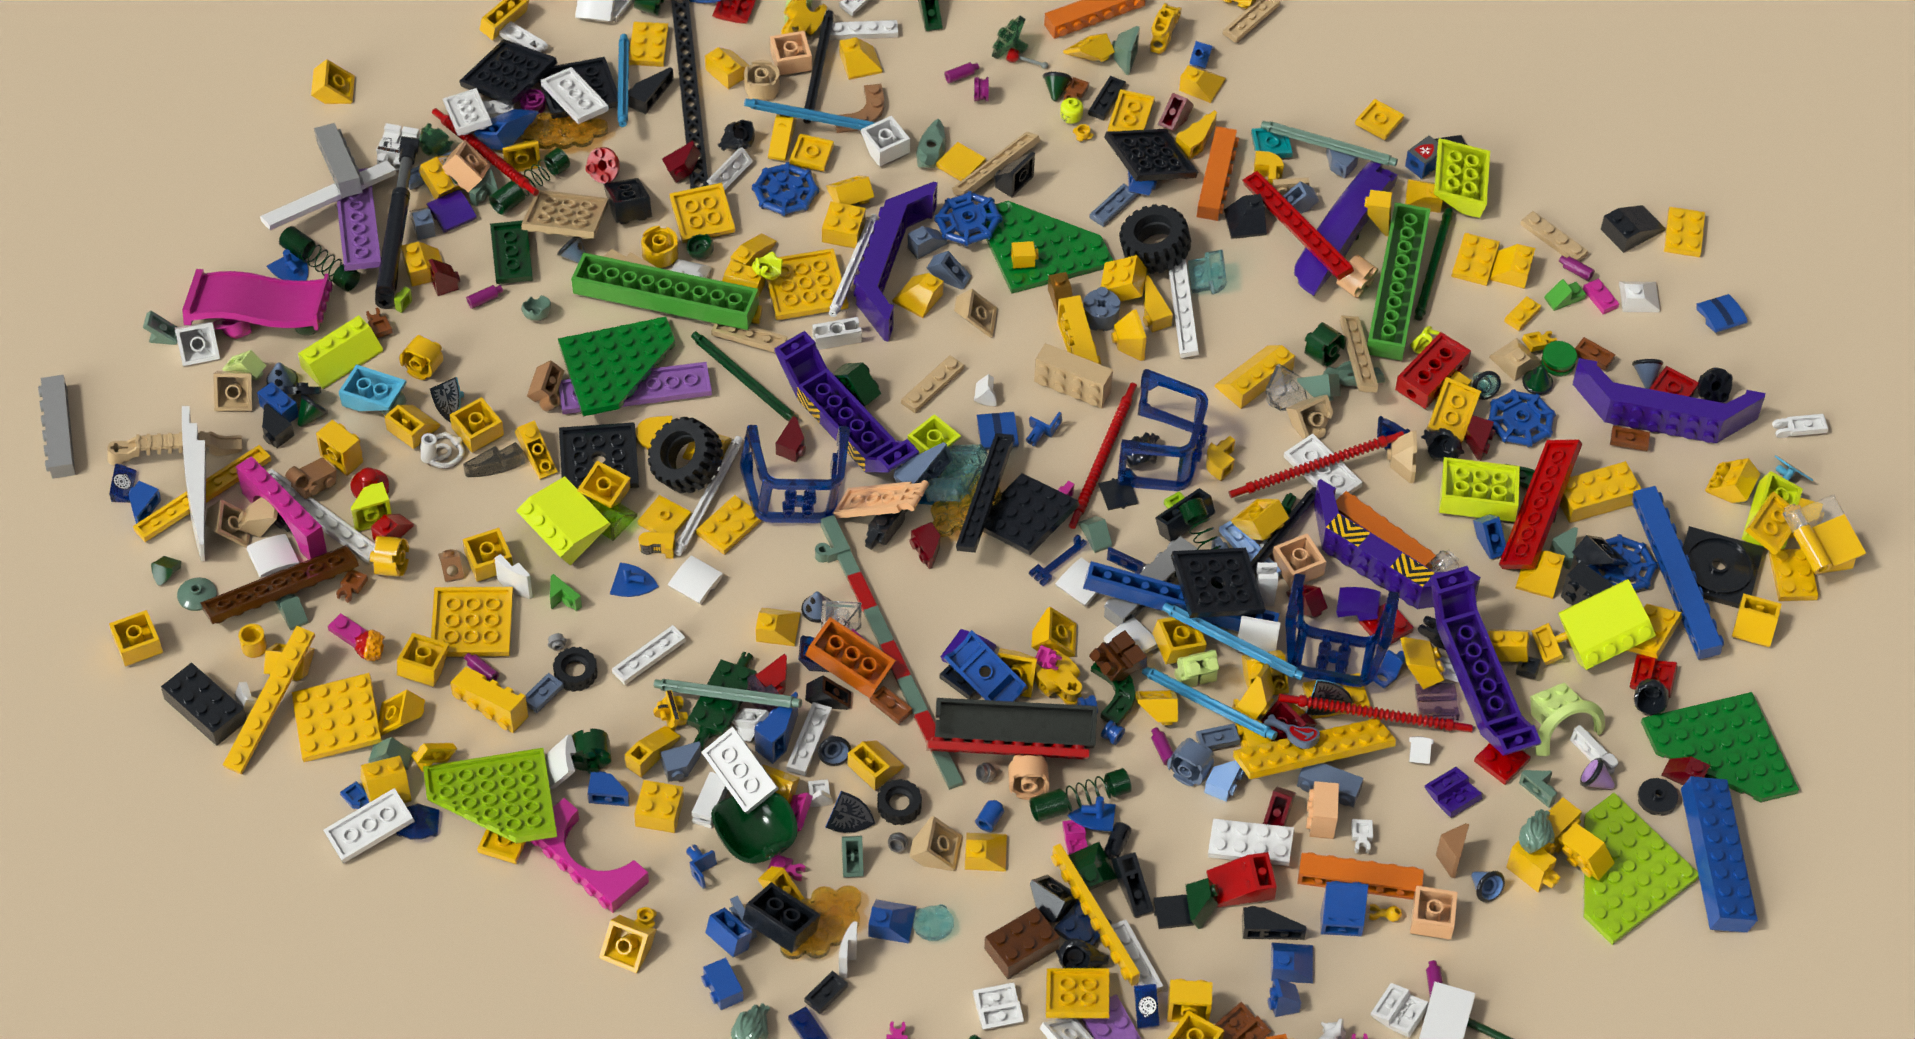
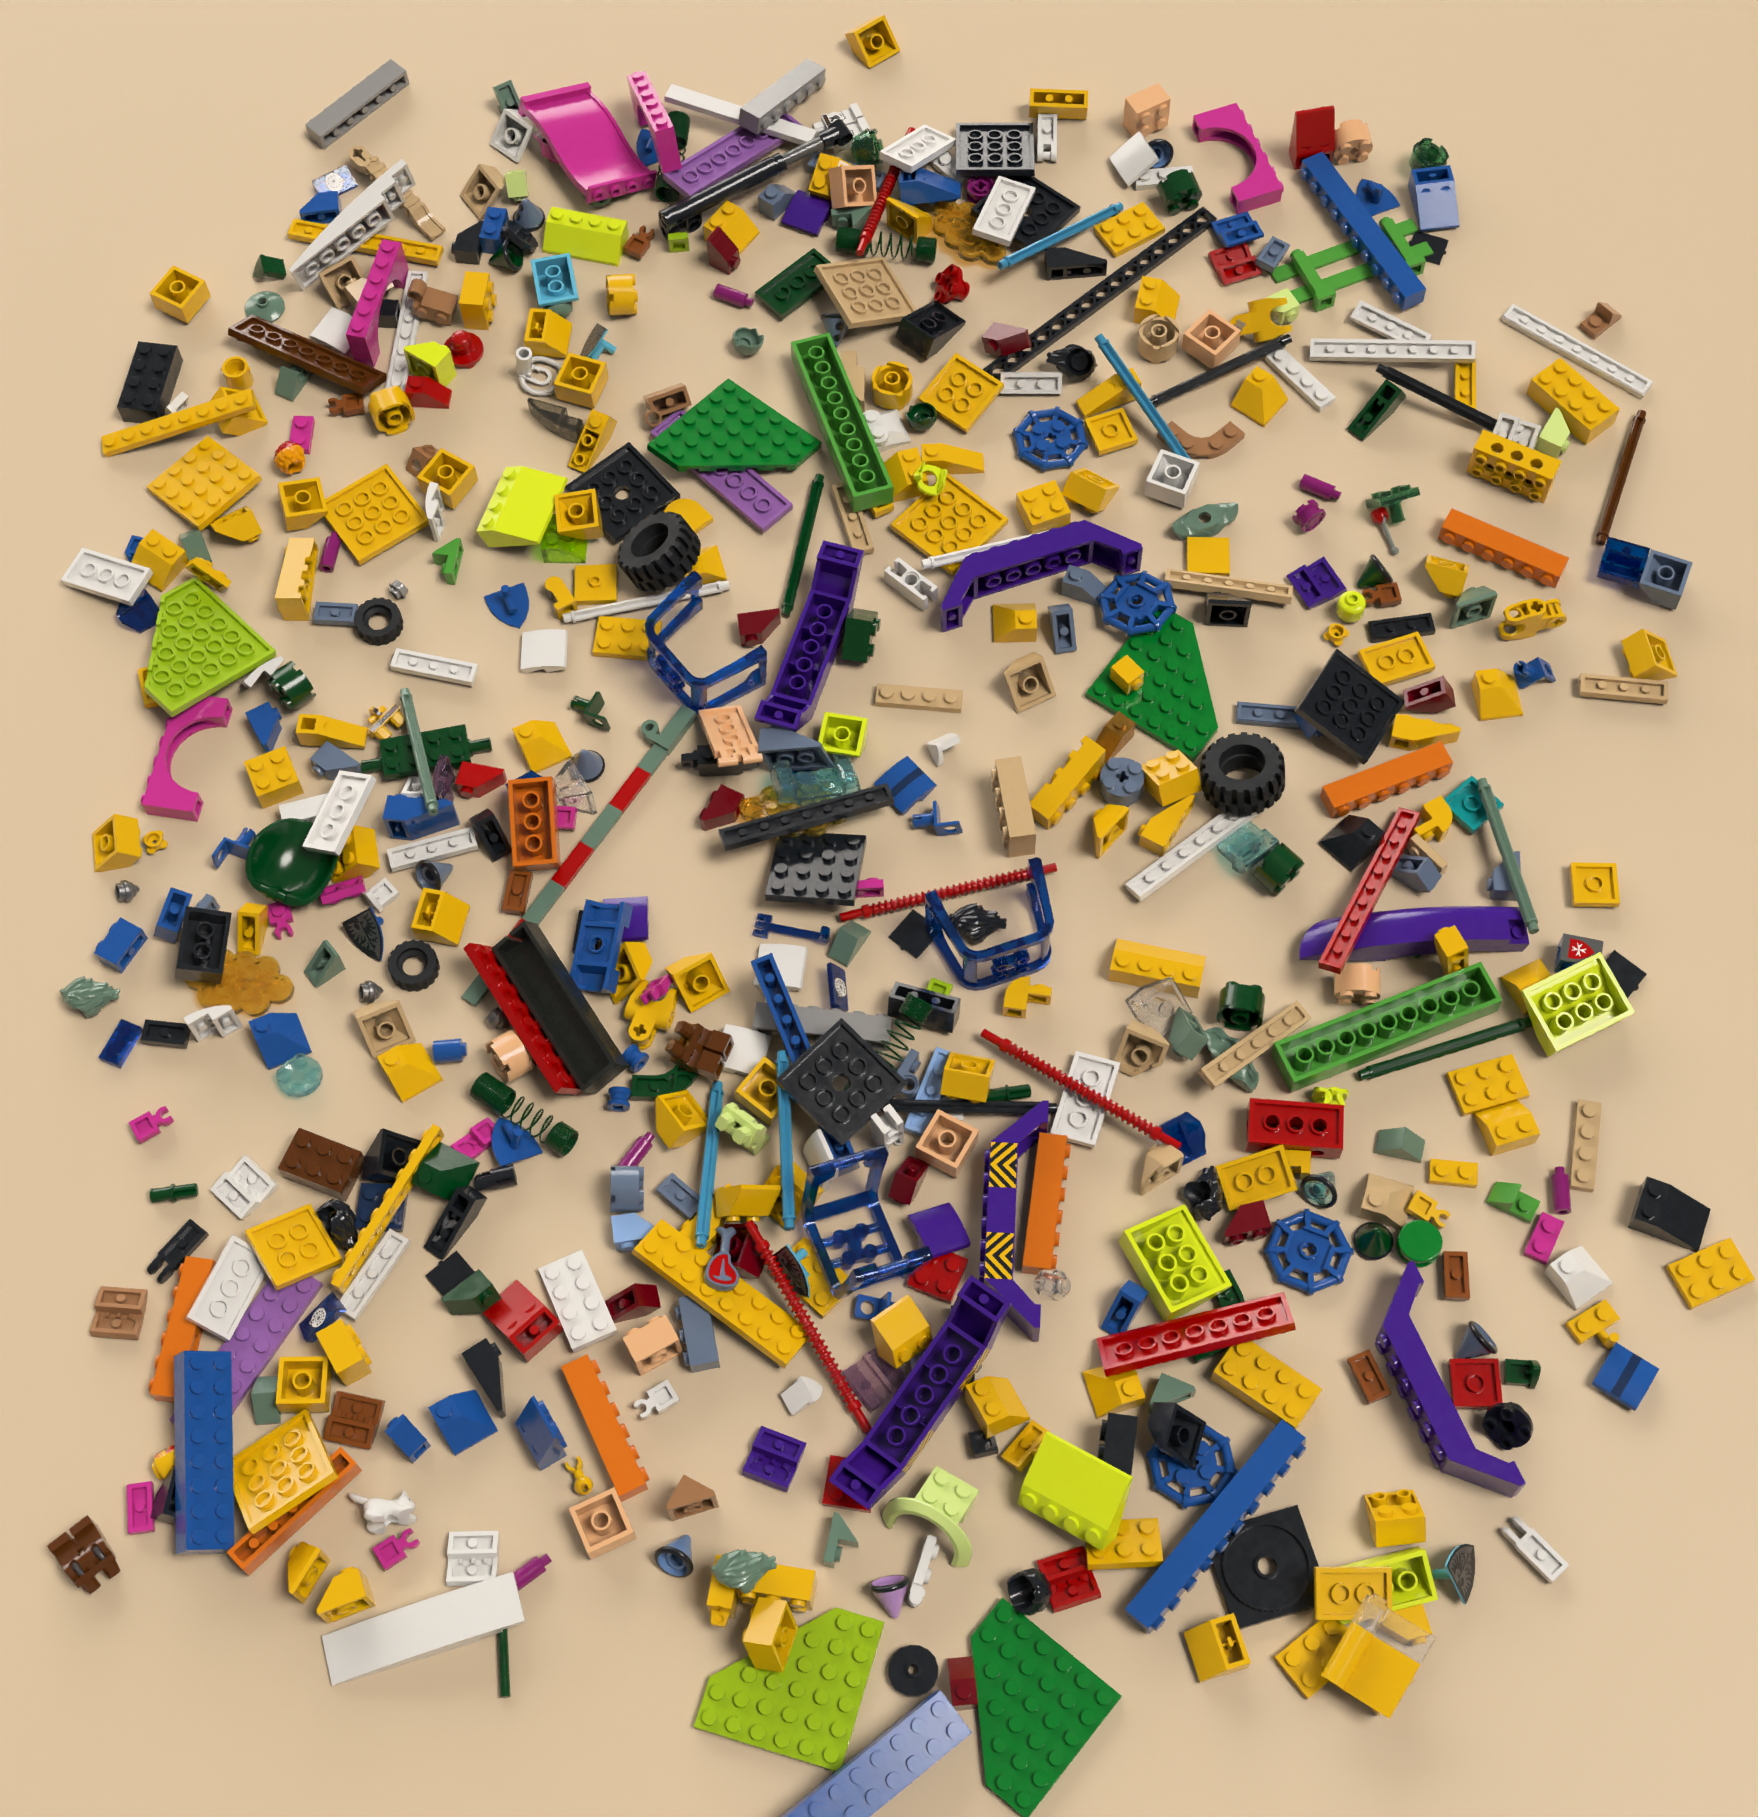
camera: 60 degrees right, 10 degrees up
(320, 236) = (650, 111): none -> dark pink arch
(674, 958) = (126, 890): none -> flat silver plate
(772, 577) = (591, 709): none -> dark green bracket
(1034, 118) = (1317, 583): none -> dark purple slope
(1240, 264) = (1278, 868): none -> dark green brick
(1481, 327) = (1400, 1144): none -> sand green slope
(1675, 308) = (1594, 1323): none -> yellow plate
(1683, 360) = (1521, 1372): none -> dark green tile

